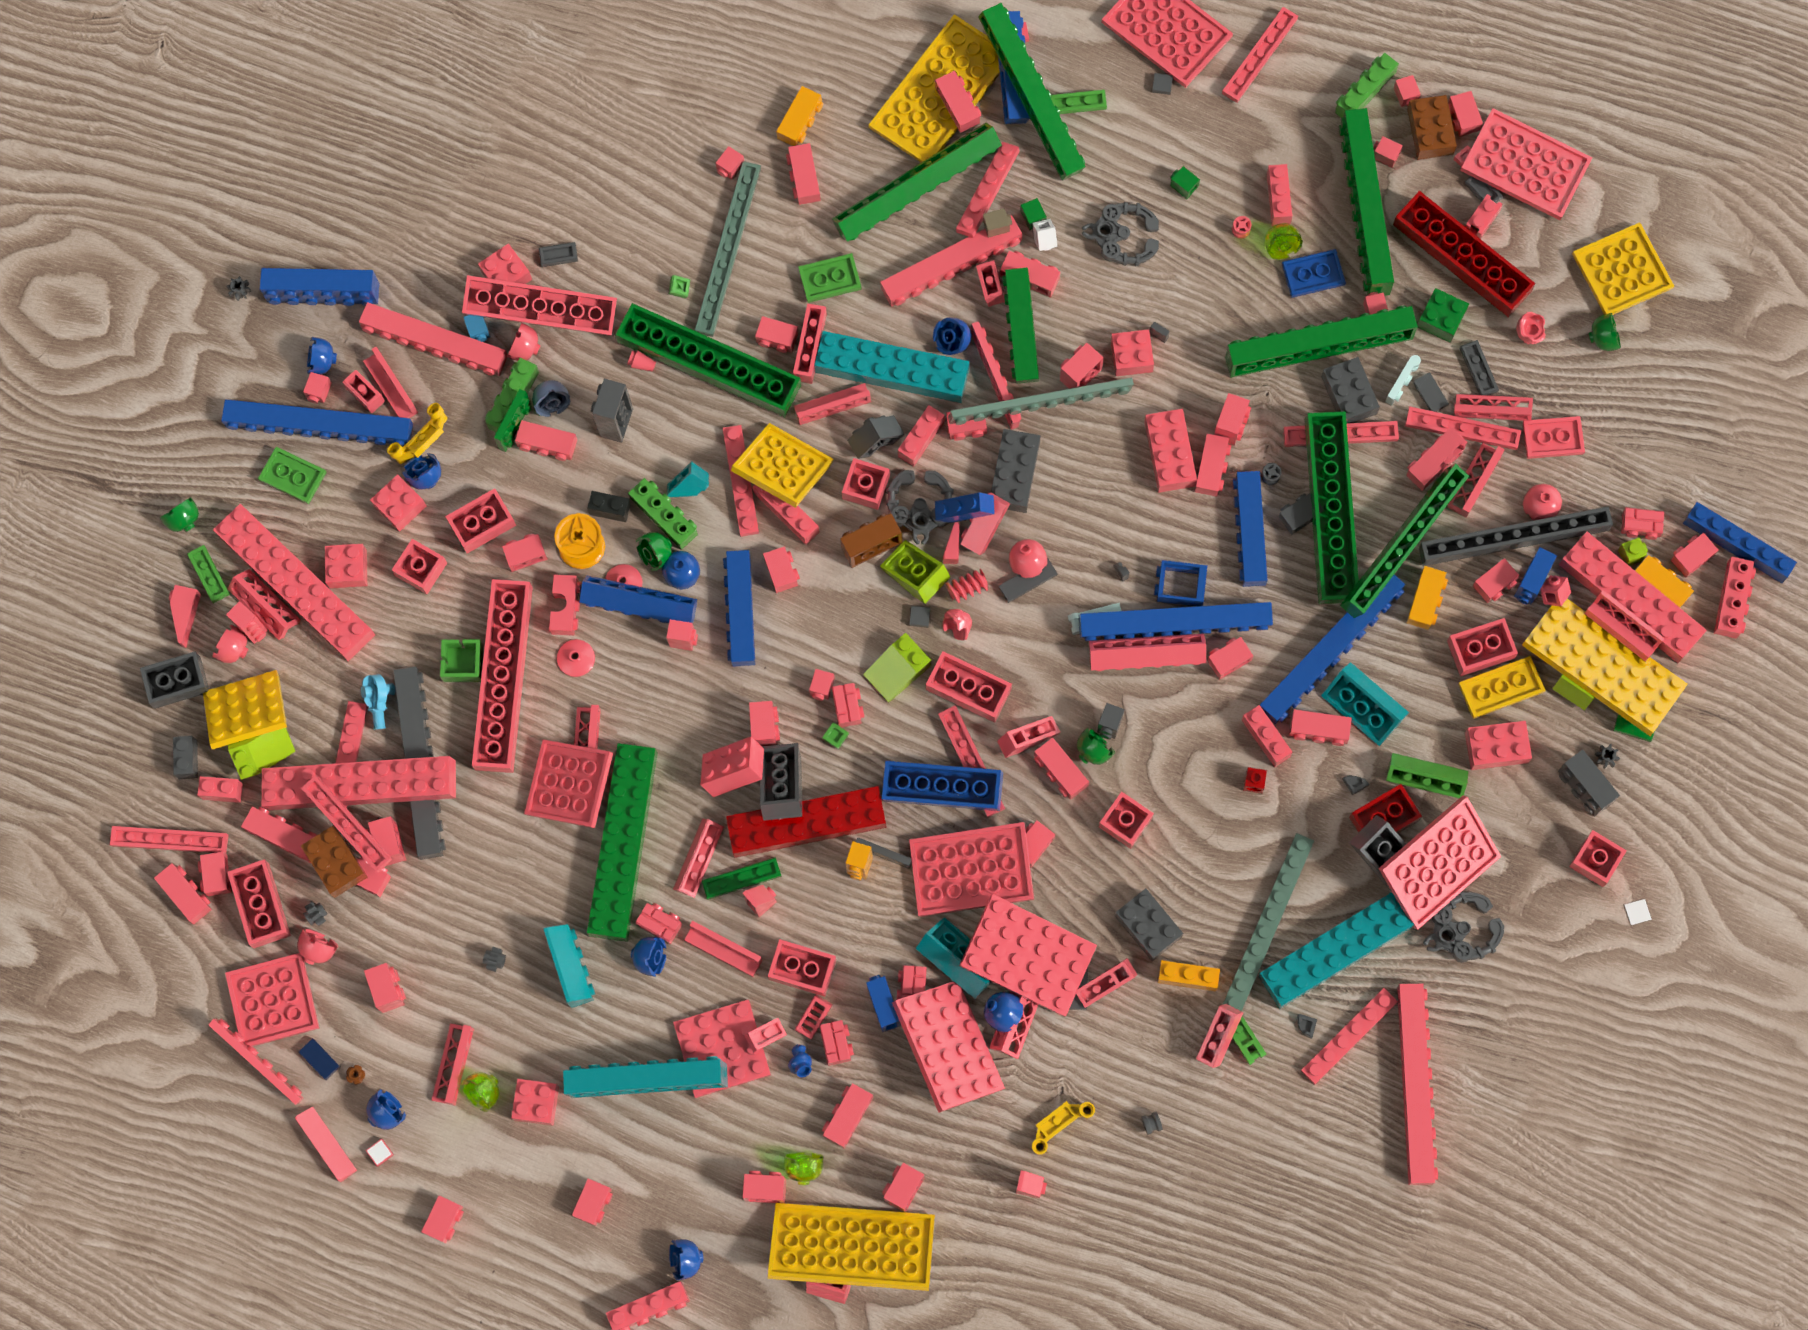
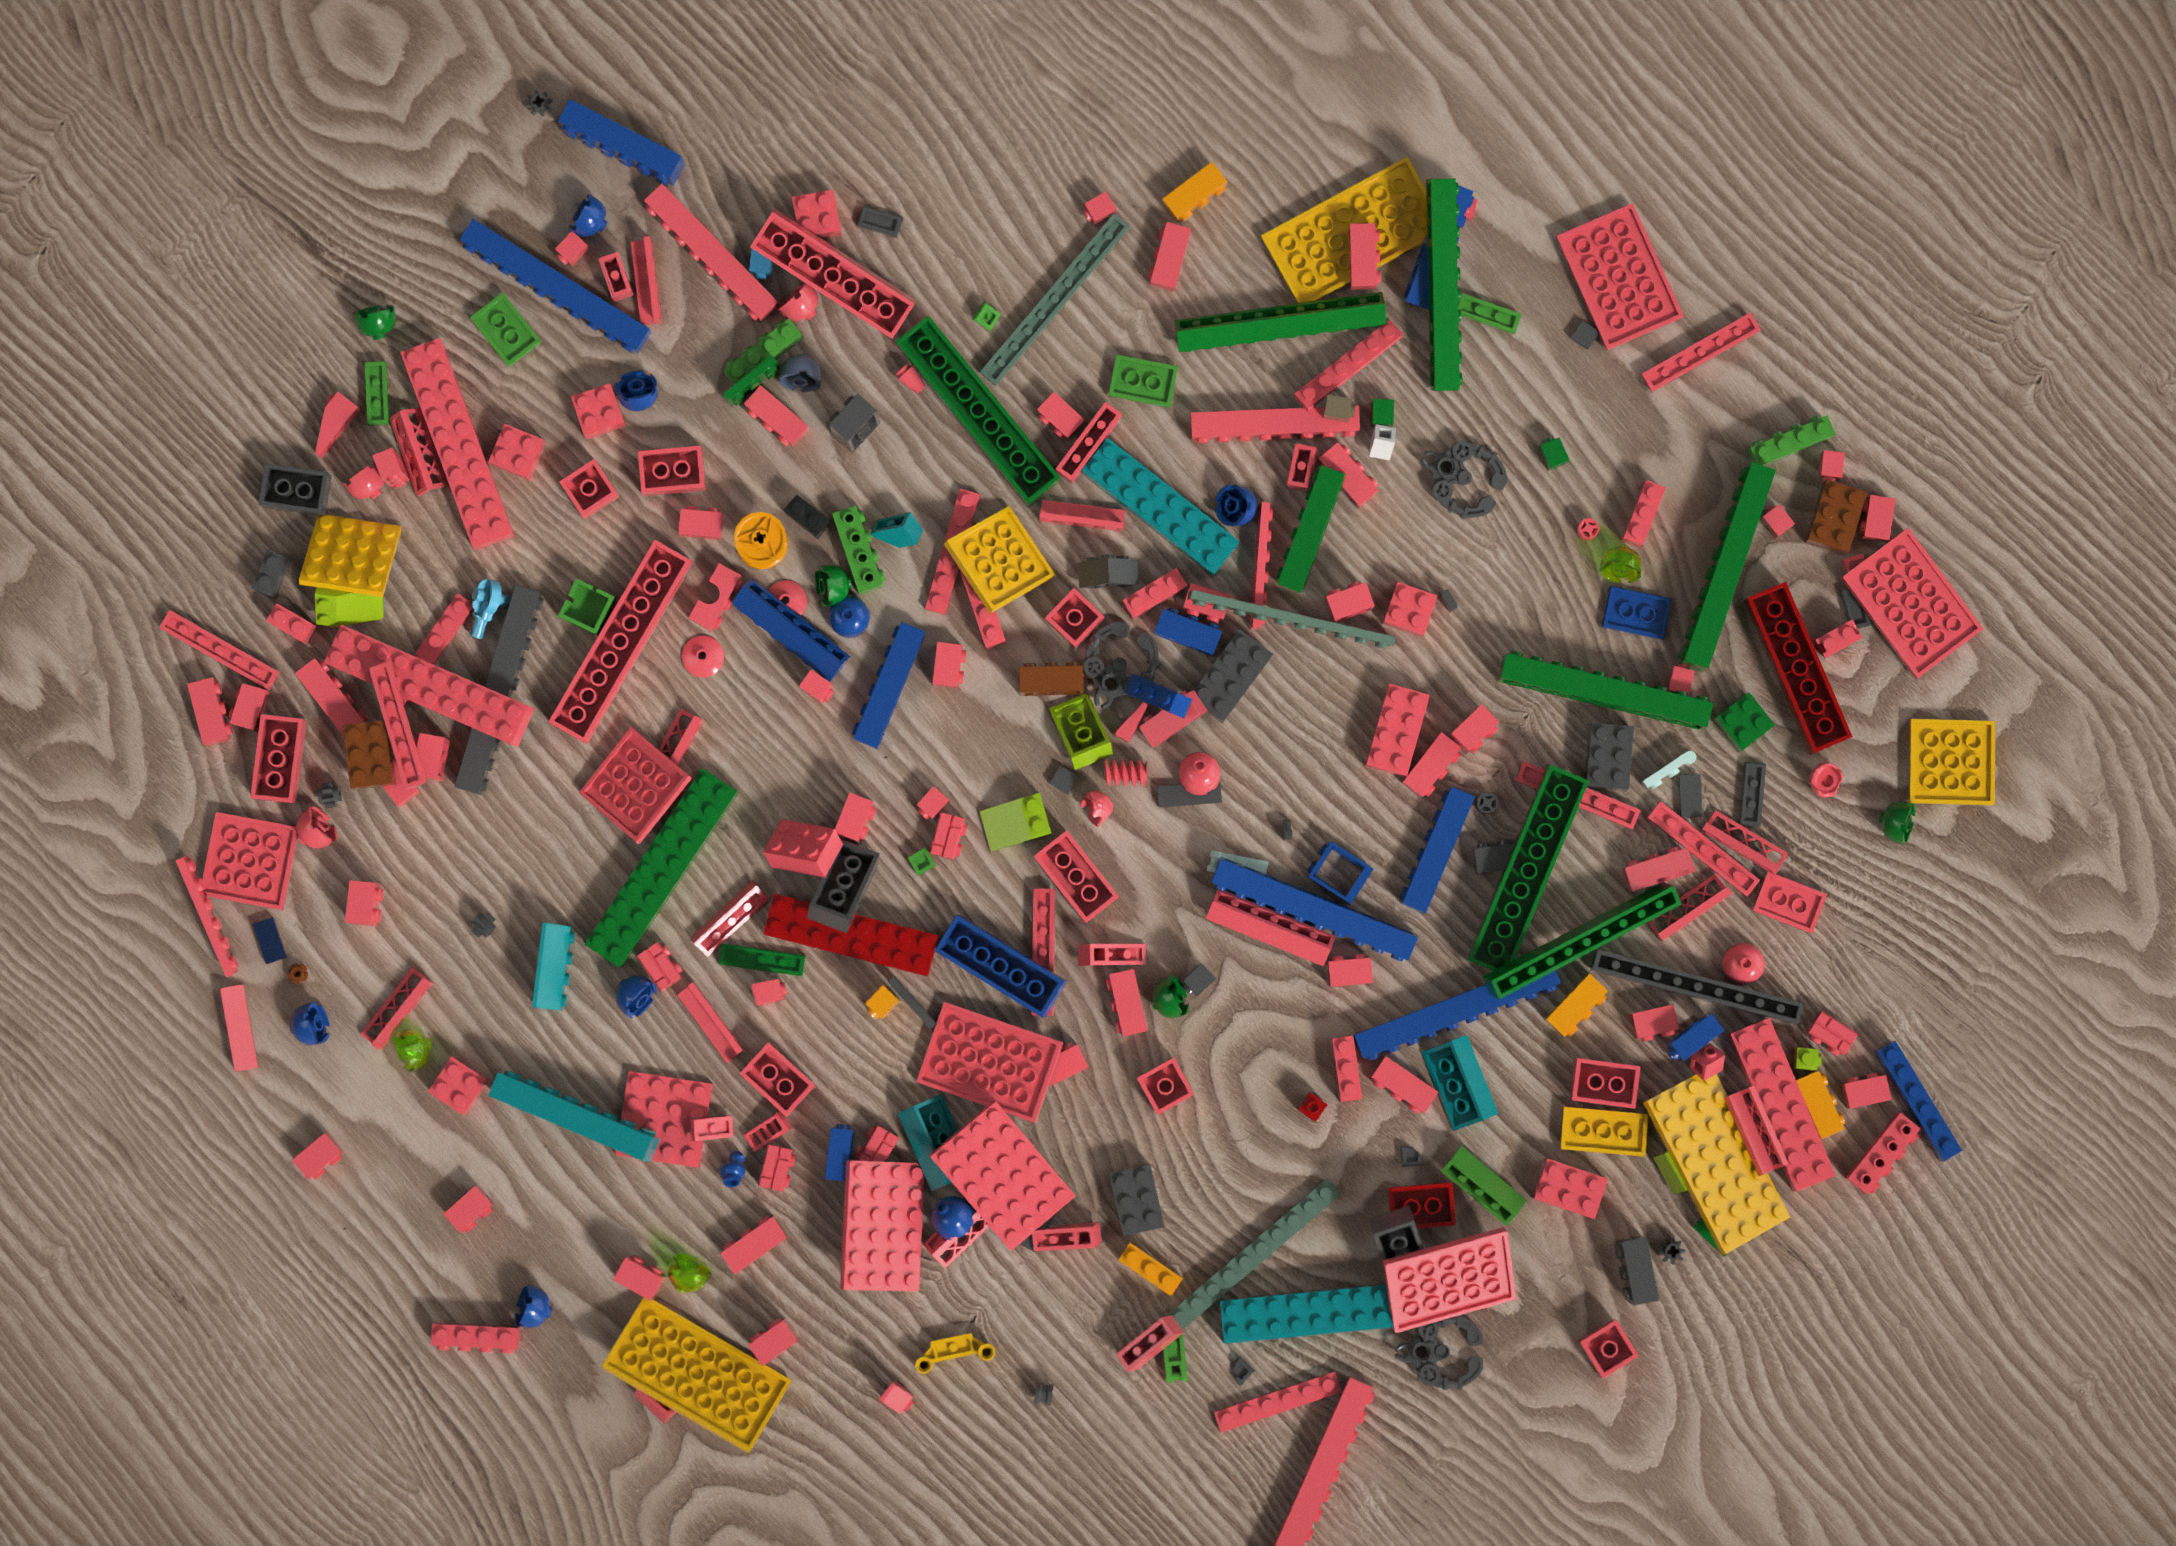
camera: 20 degrees right, 10 degrees up
(379, 1152) = (287, 1061): white tile -> none
(422, 439) = (654, 355): yellow plate -> none
(963, 453) = (1188, 631): none -> blue brick
(1637, 912) = (1621, 1417): white sticker -> none

